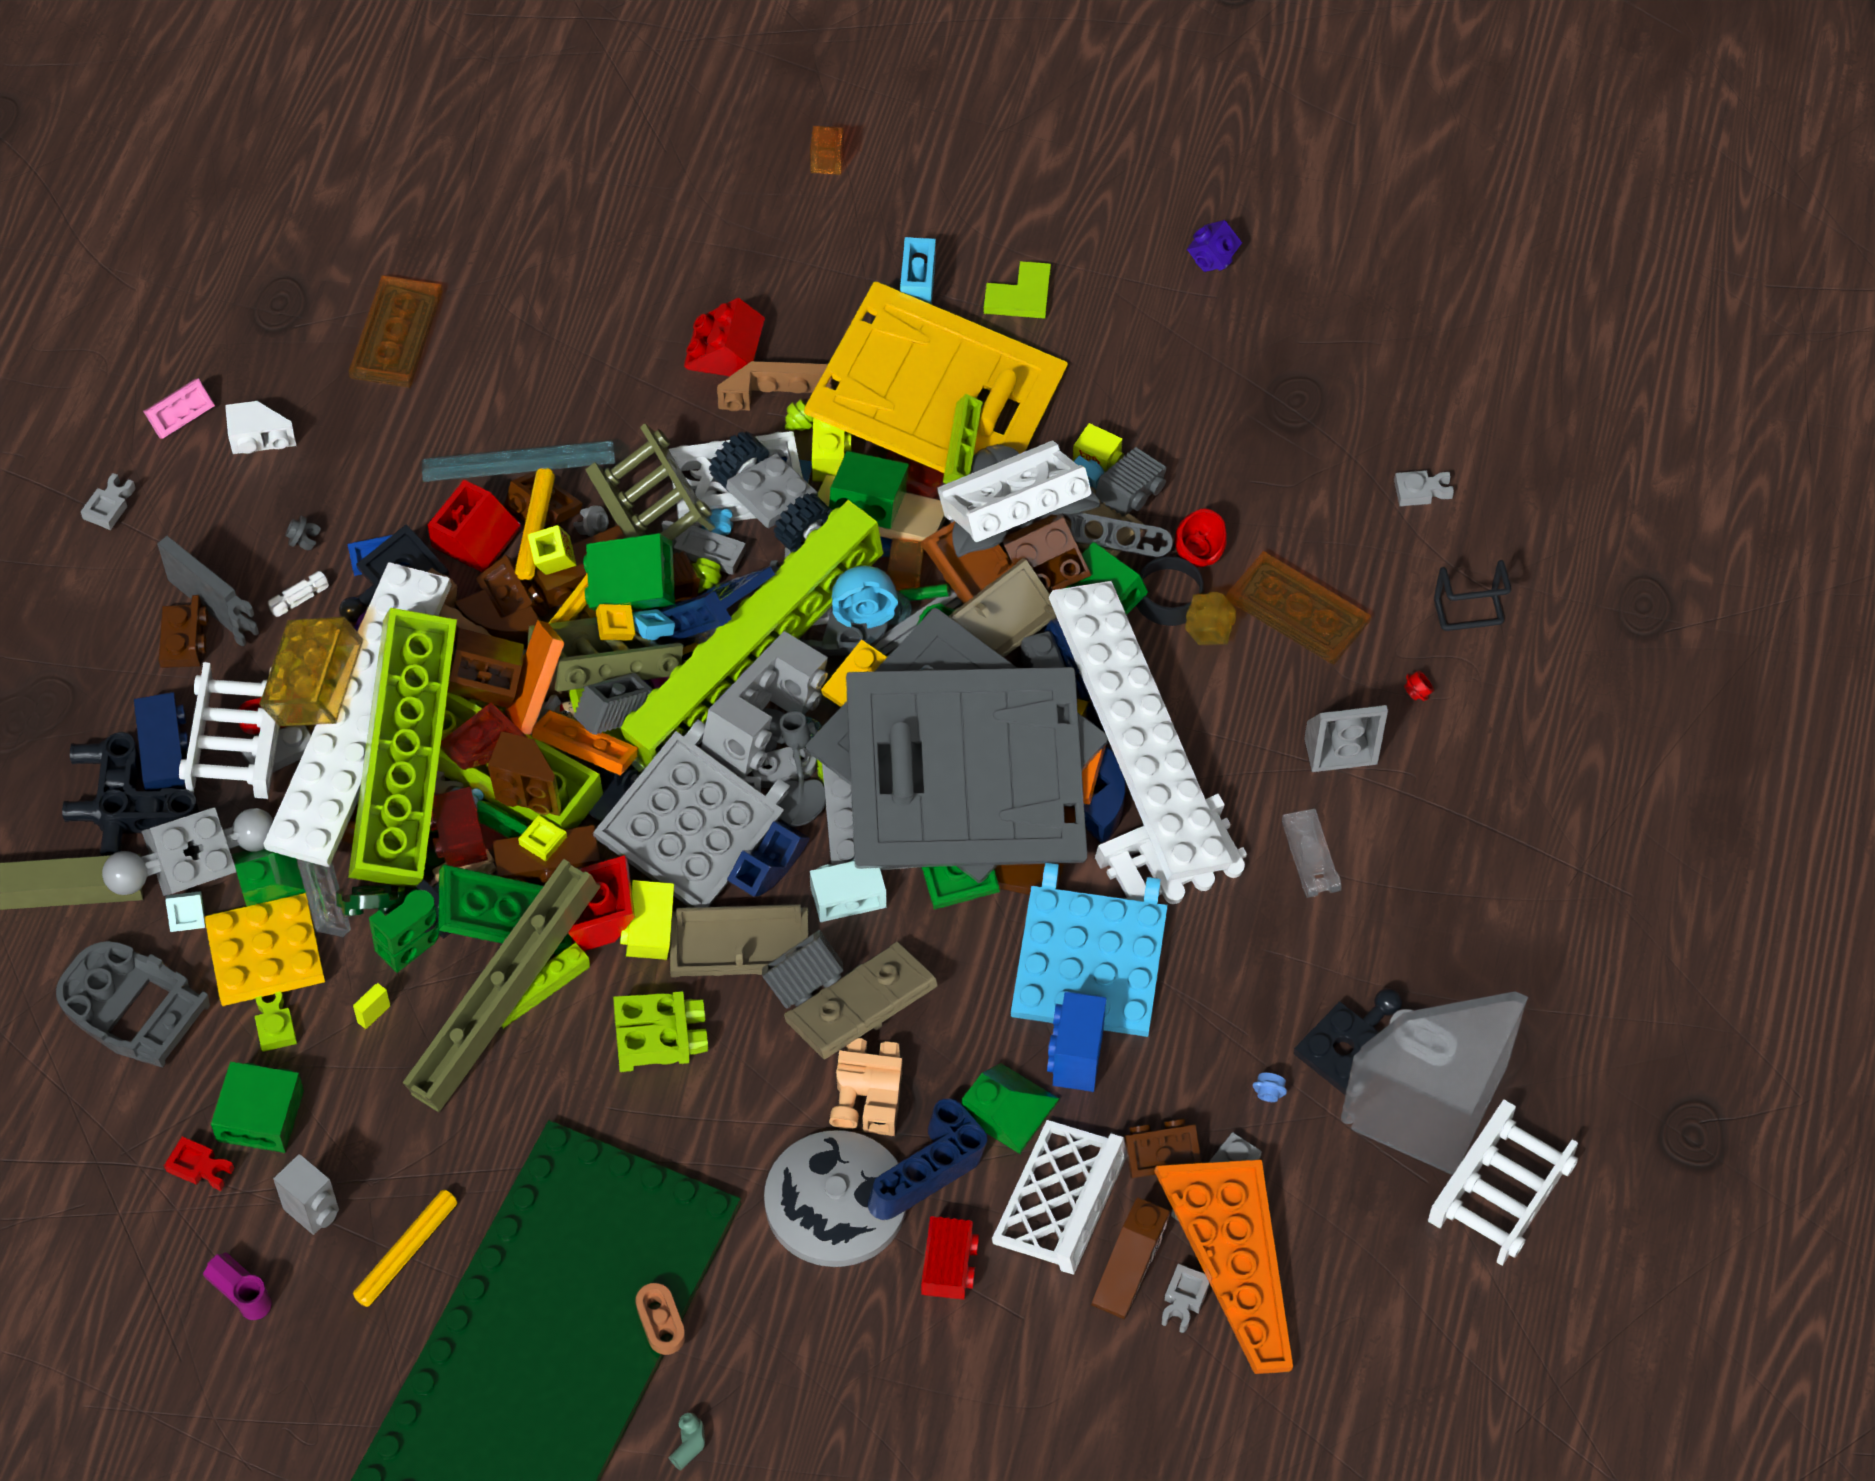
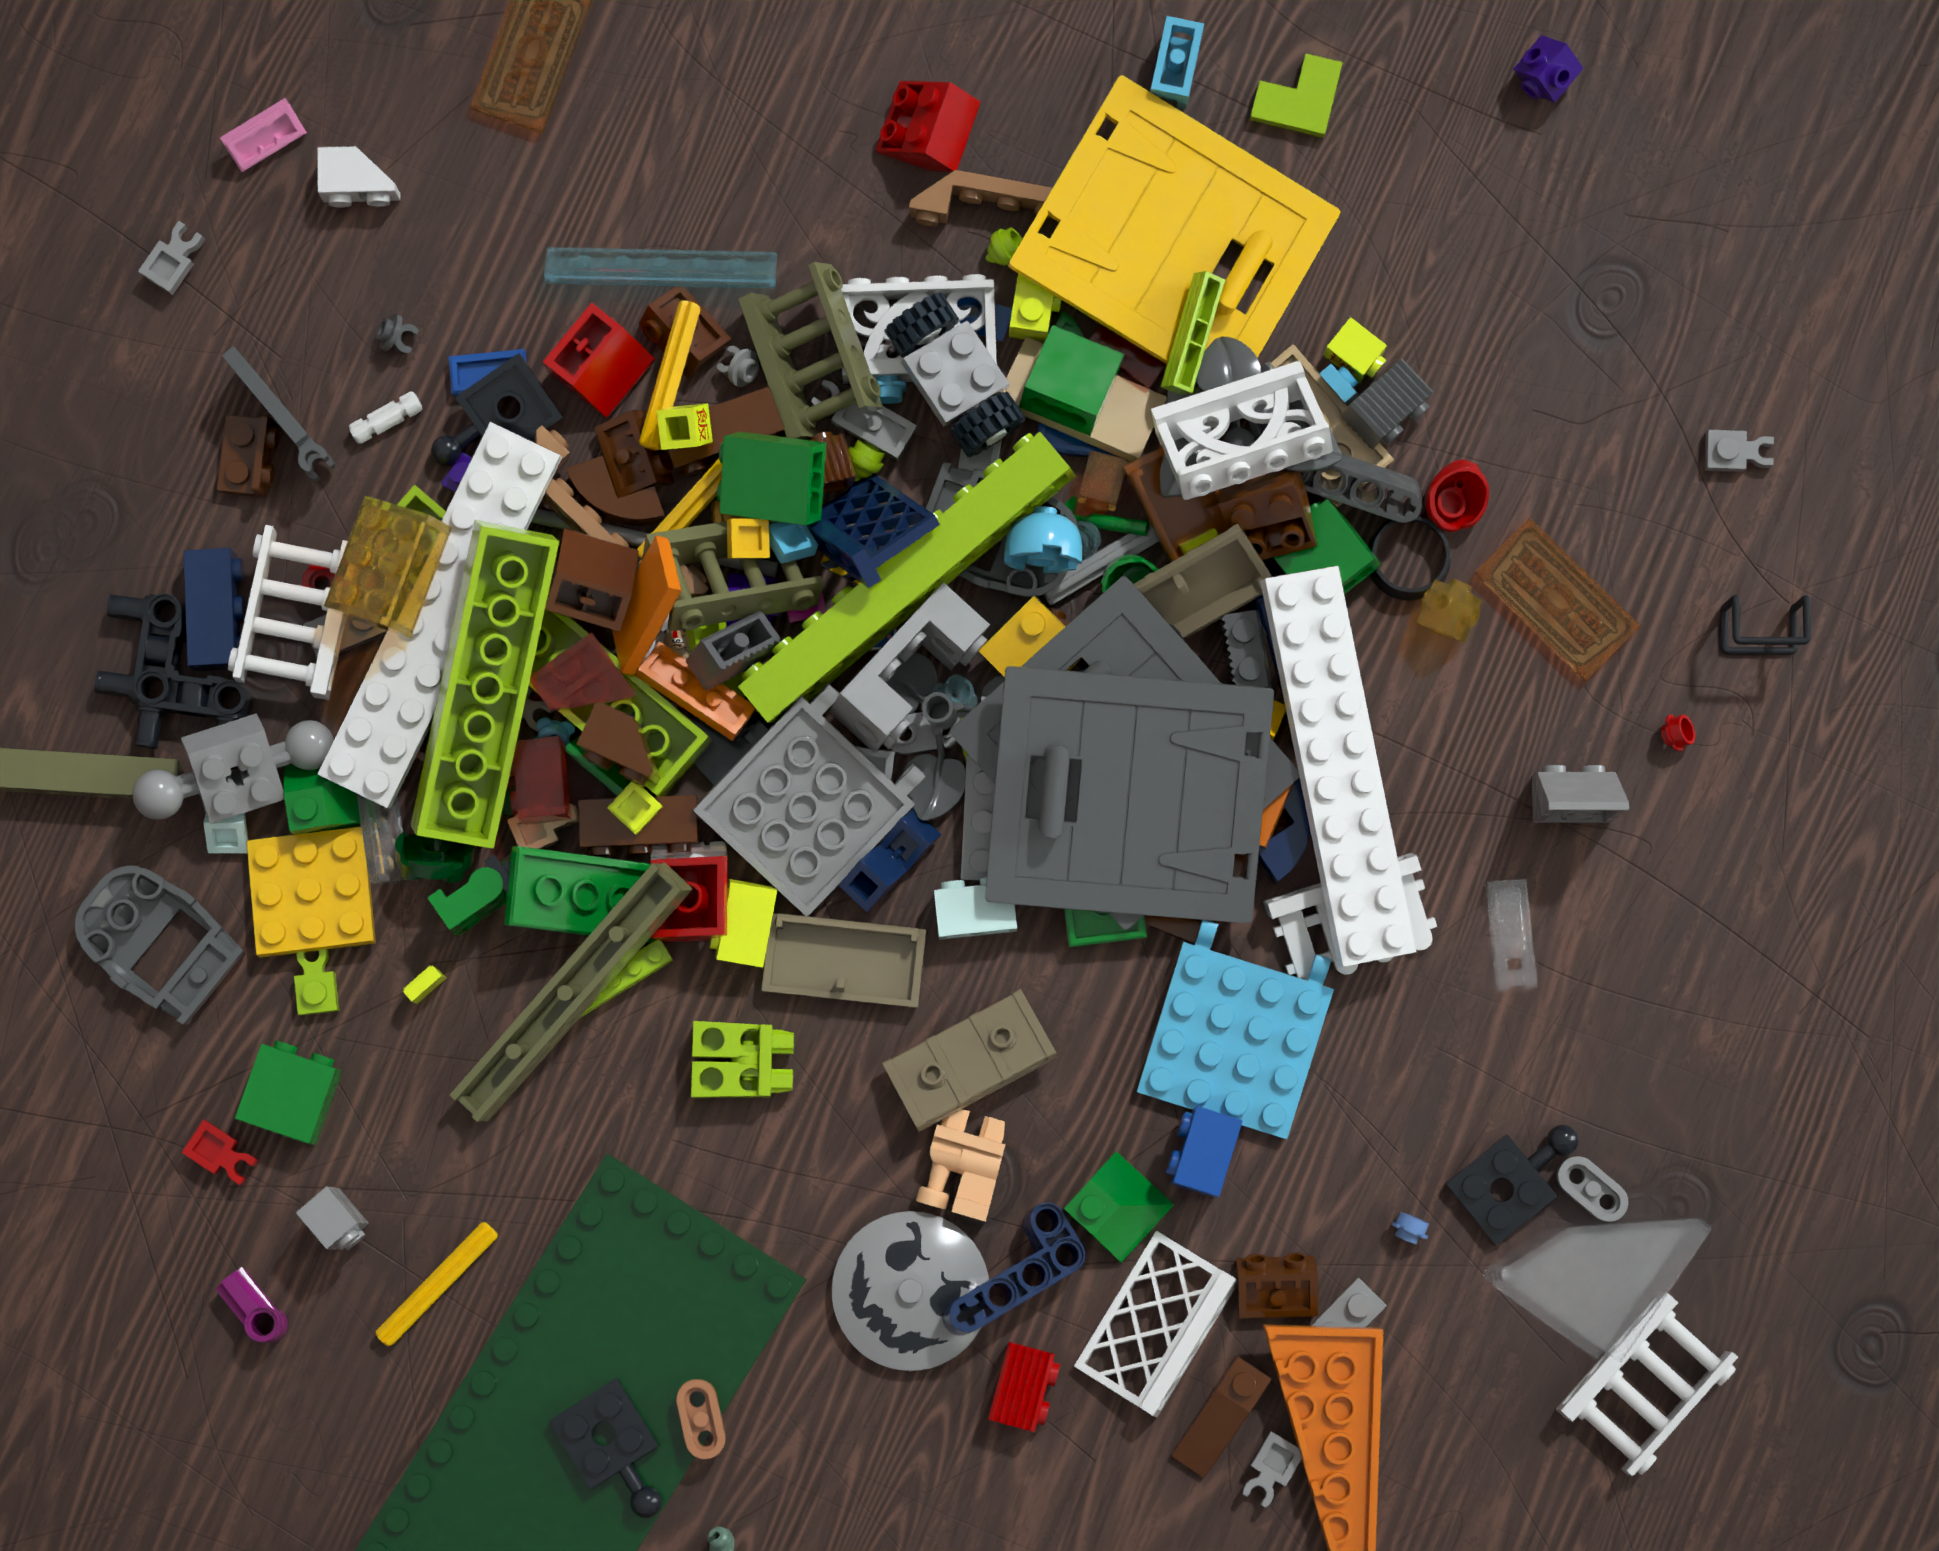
camera: 10 degrees right, 25 degrees up
(574, 1368) = (631, 1443): none -> black plate
(803, 970) = (909, 1017): dark grey brick -> none

